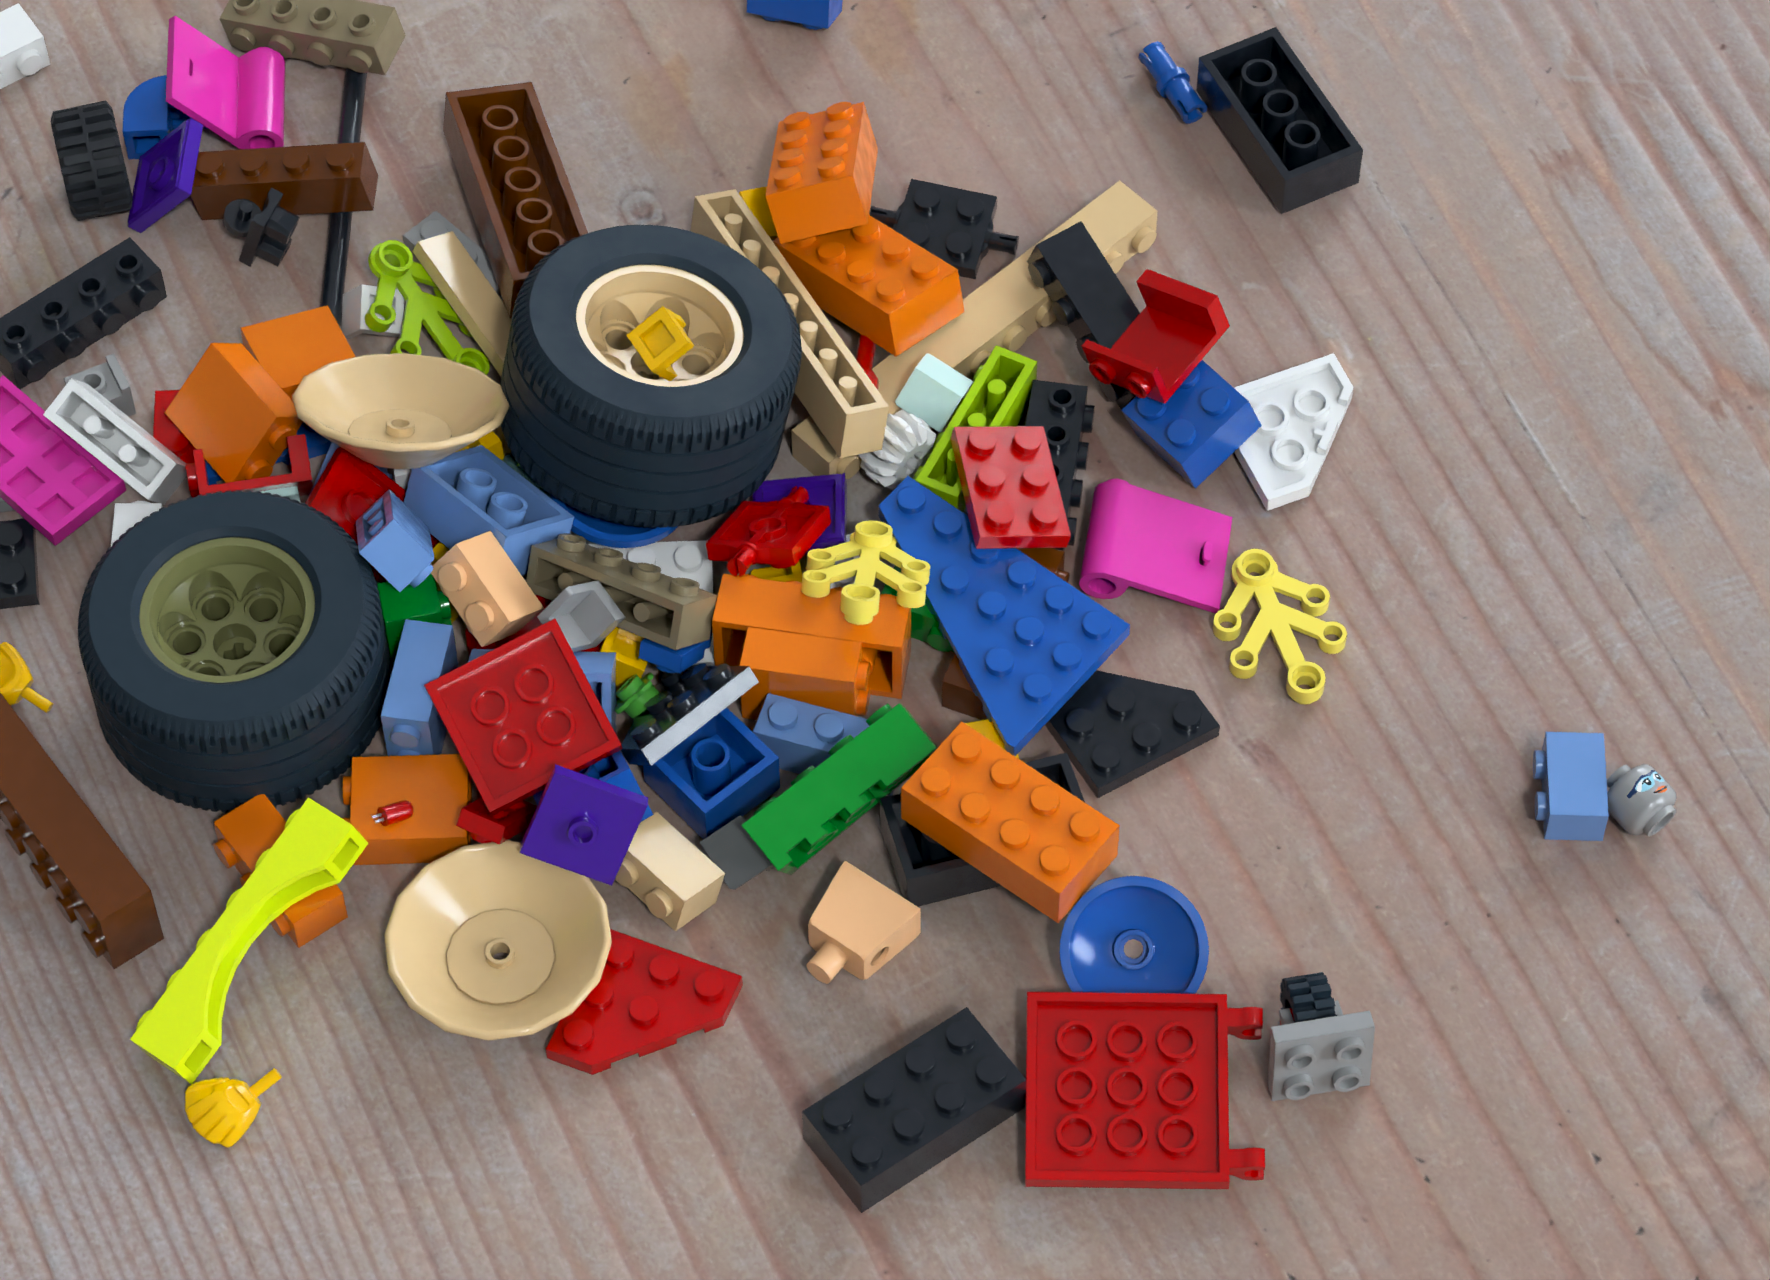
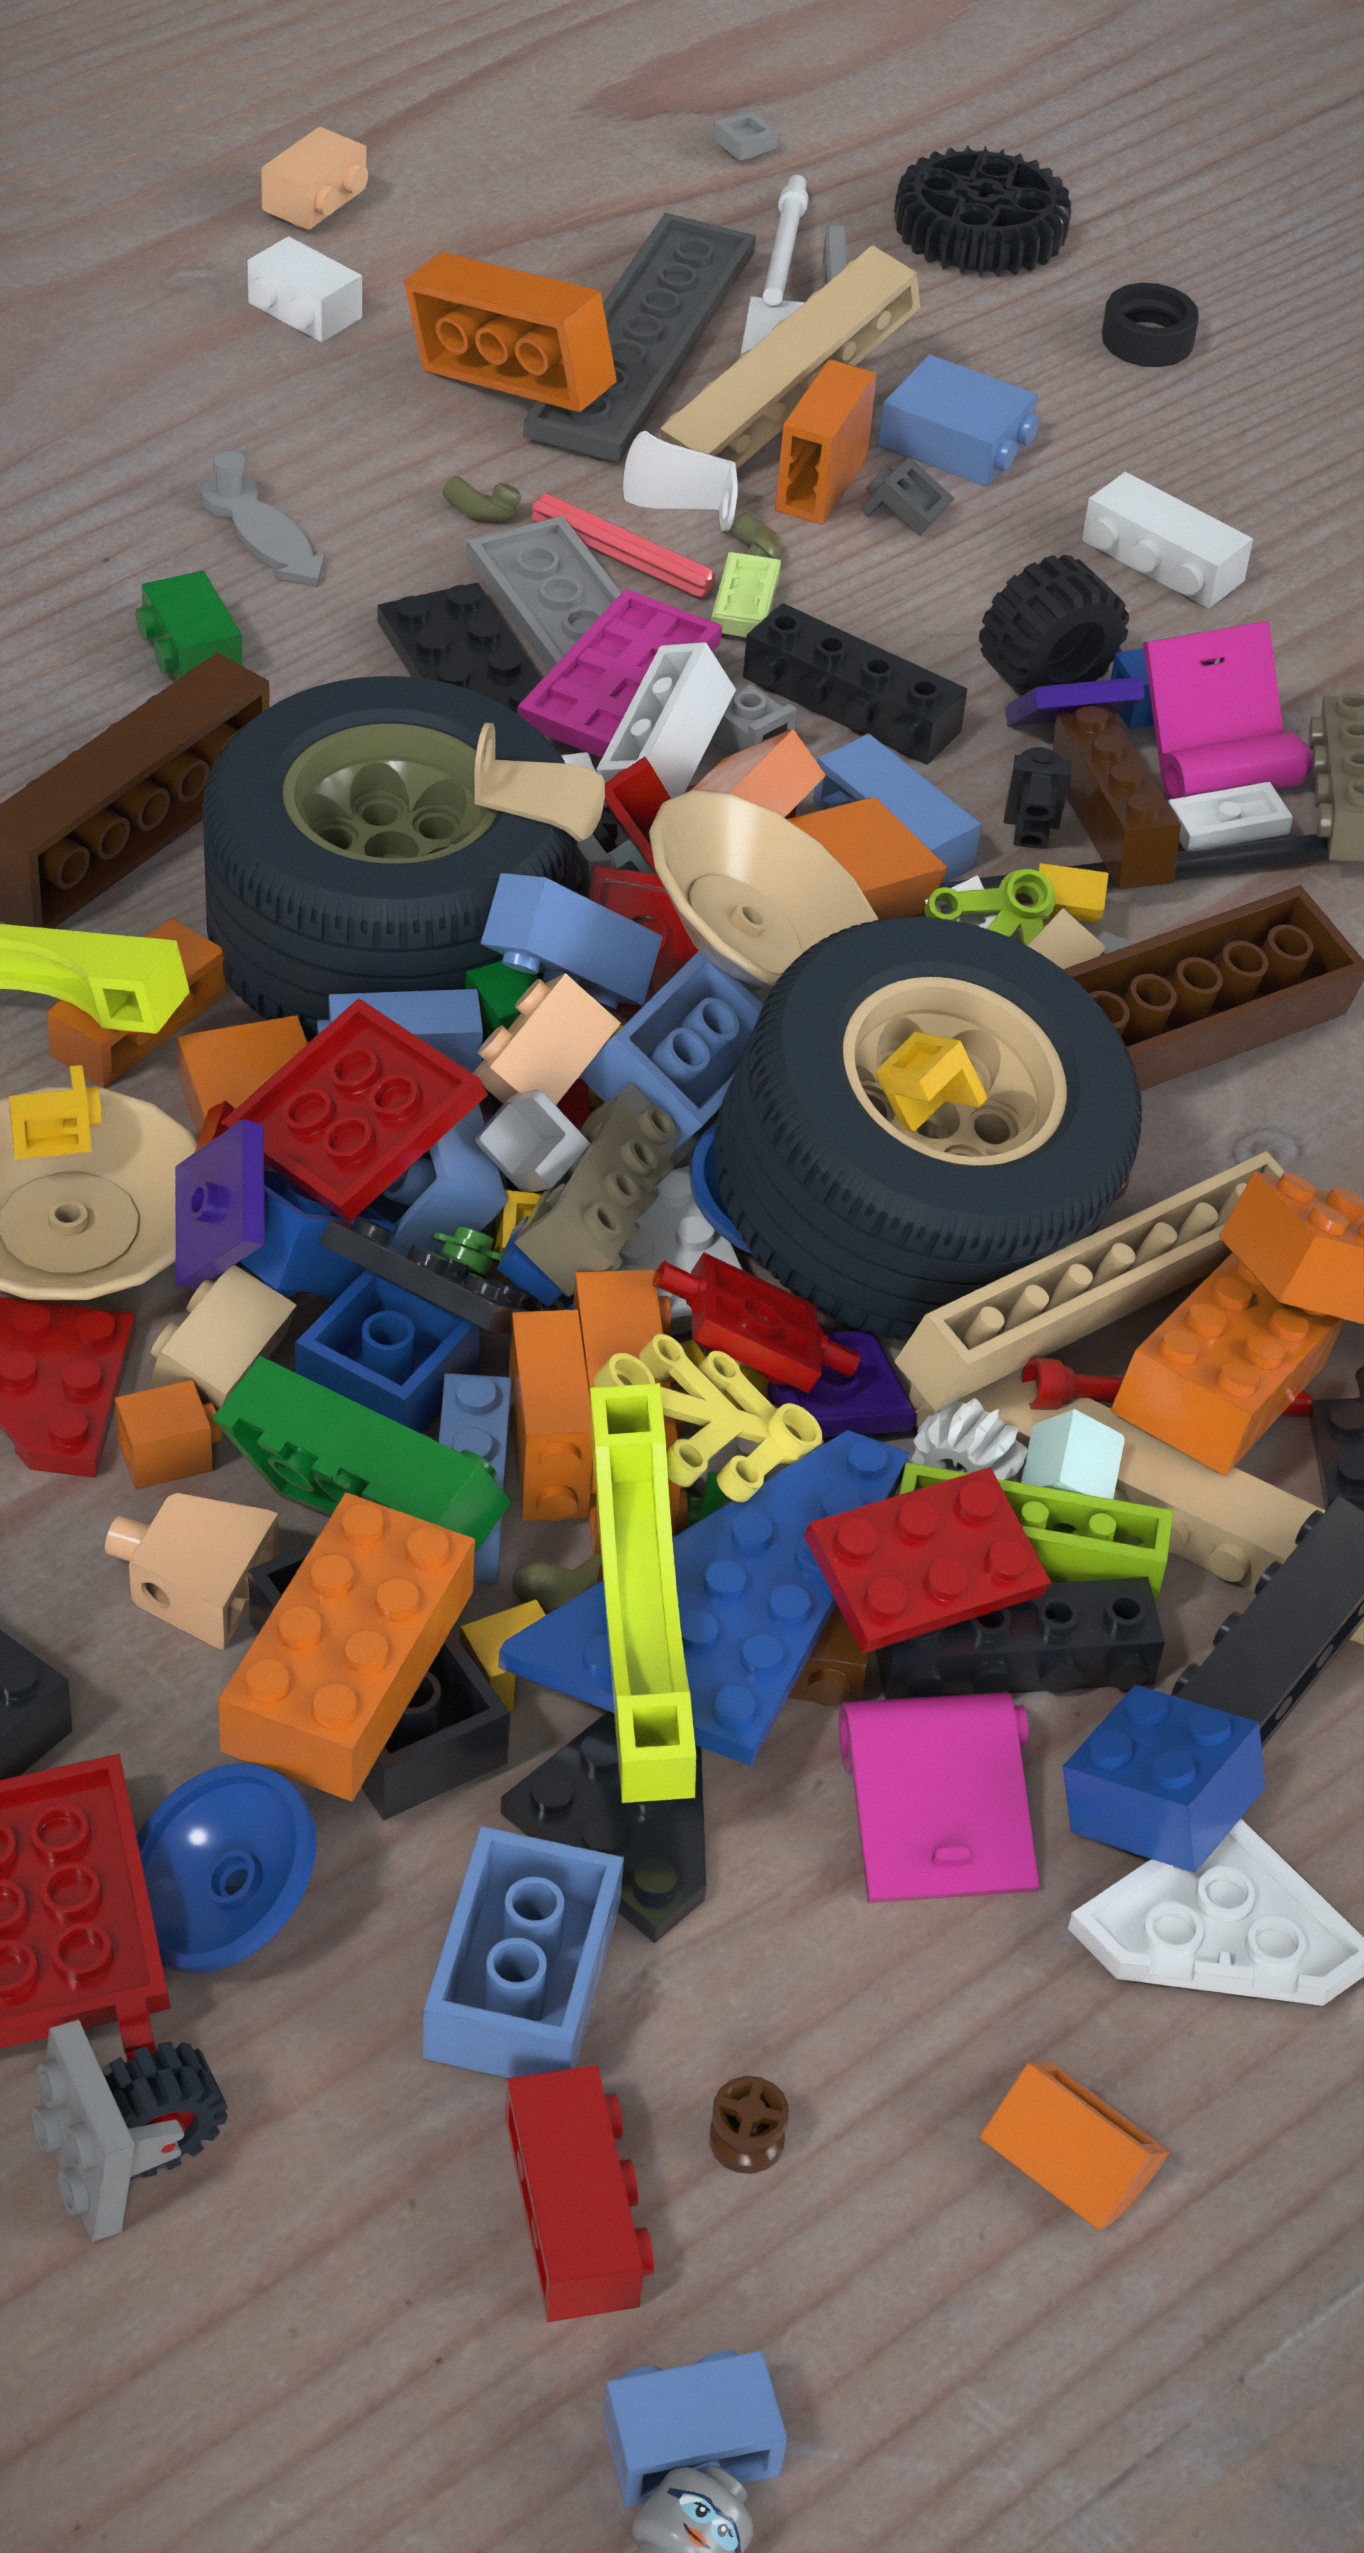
camera: 70 degrees right, 10 degrees down
(220, 317) = (871, 770): none -> medium blue brick
(268, 510) = (545, 792): none -> tan piece
(309, 114) = (1231, 816): none -> white plate
(370, 231) = (1077, 891): none -> yellow panel
(394, 813) = (223, 1063): red piece -> none
(446, 917) = (55, 1120): none -> yellow bracket
(733, 926) = (165, 1433): none -> orange brick
(931, 713) = (554, 1584): none -> olive arm
(1106, 661) = (641, 1595): none -> neon yellow arch
(1163, 339) = (1237, 1684): red panel -> none
(1239, 795) = (522, 1956): none -> medium blue brick
(1279, 621) = (866, 1970): light yellow plant -> none
(1371, 699) = (745, 2105): none -> reddish brown wheel
(1404, 811) = (577, 2193): none -> red brick
(1425, 547) = (1073, 2143): none -> orange brick

